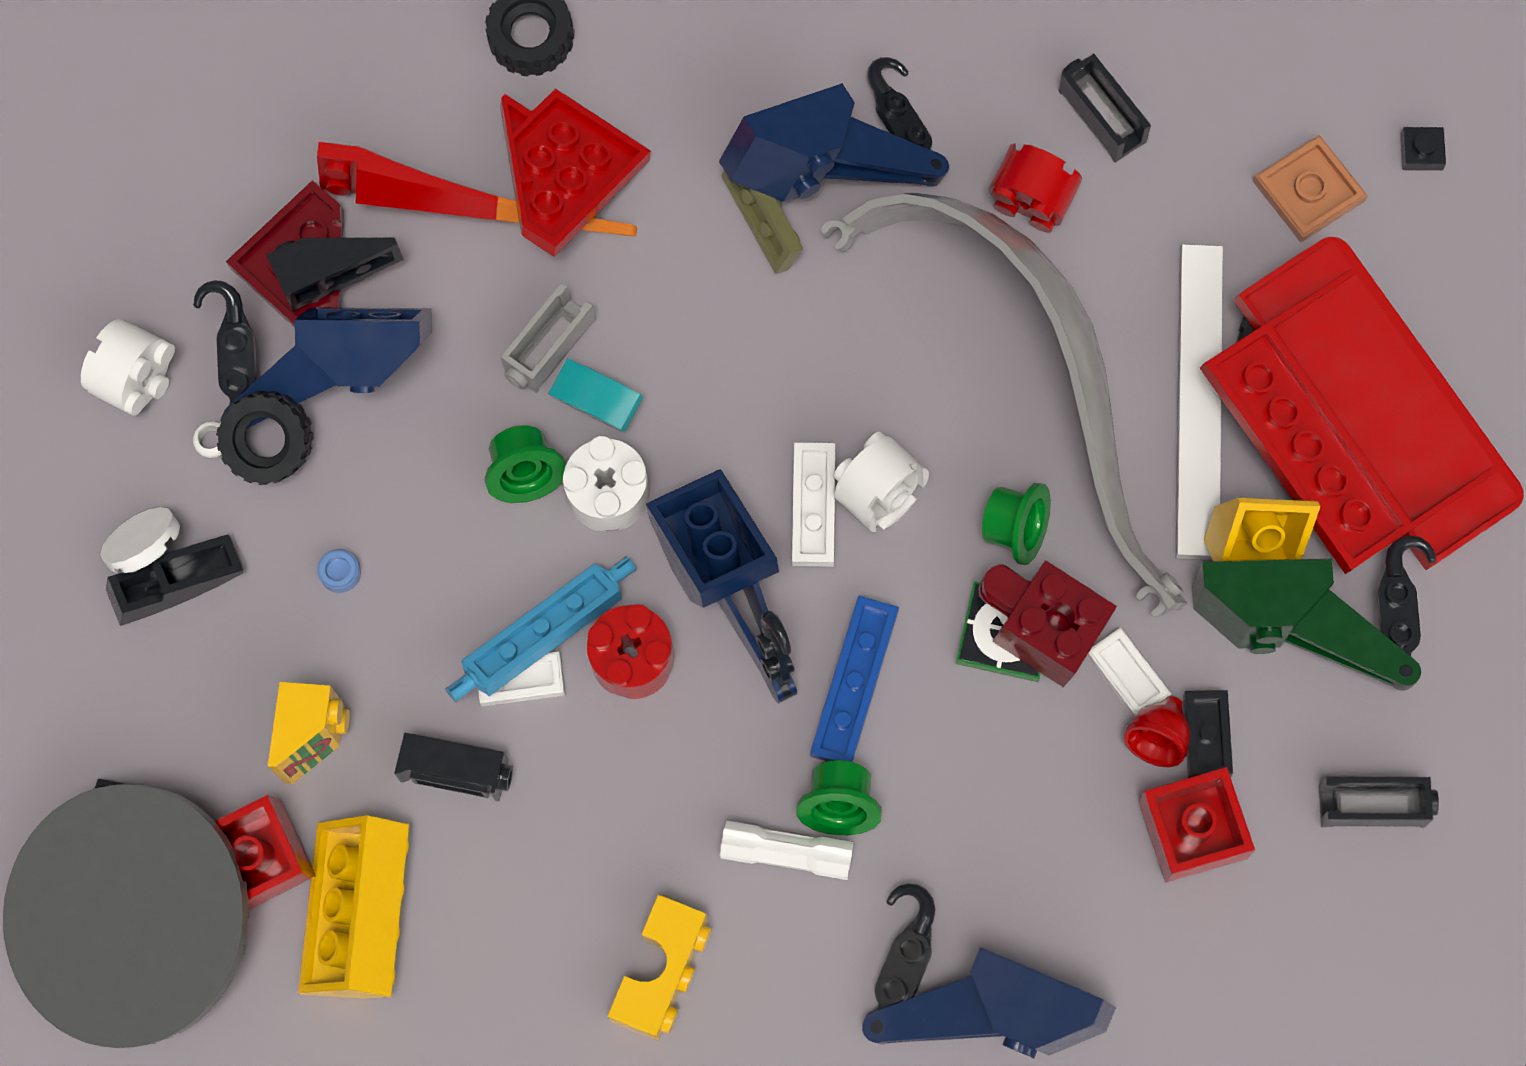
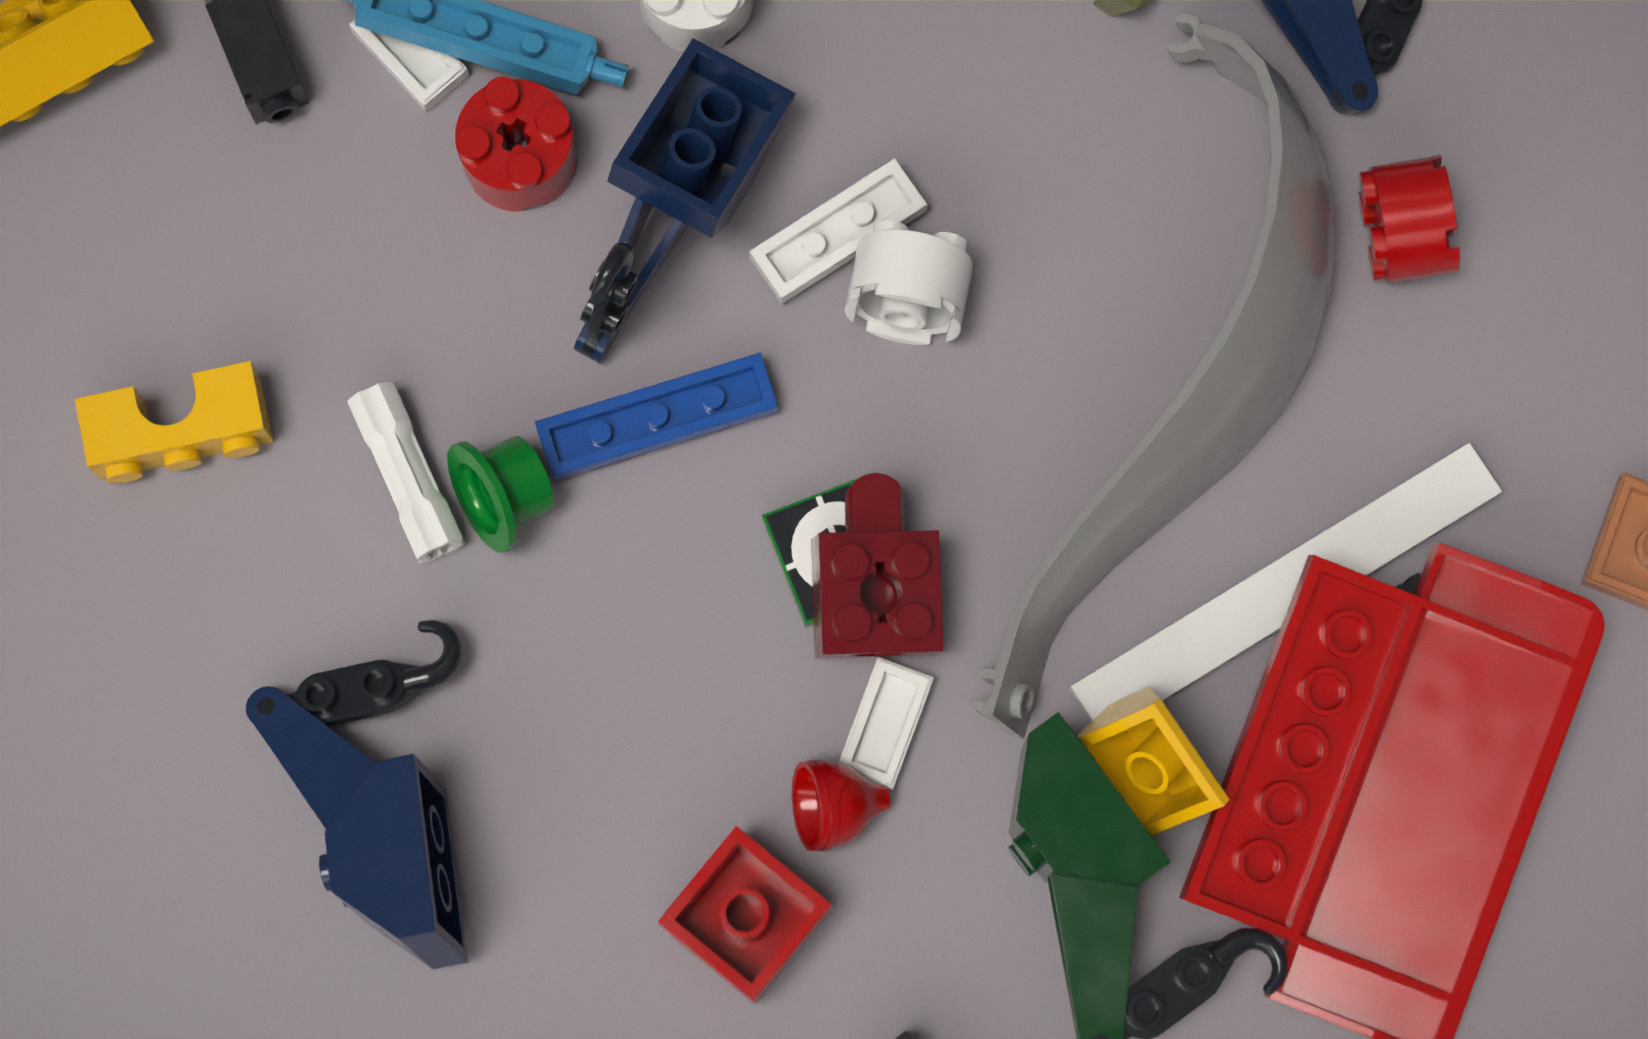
camera: 50 degrees right, 5 degrees up
(1017, 520) = (976, 473): green piece -> none
(1104, 106) = (1579, 237): black window -> none
(1209, 731) = (872, 861): black plate -> none

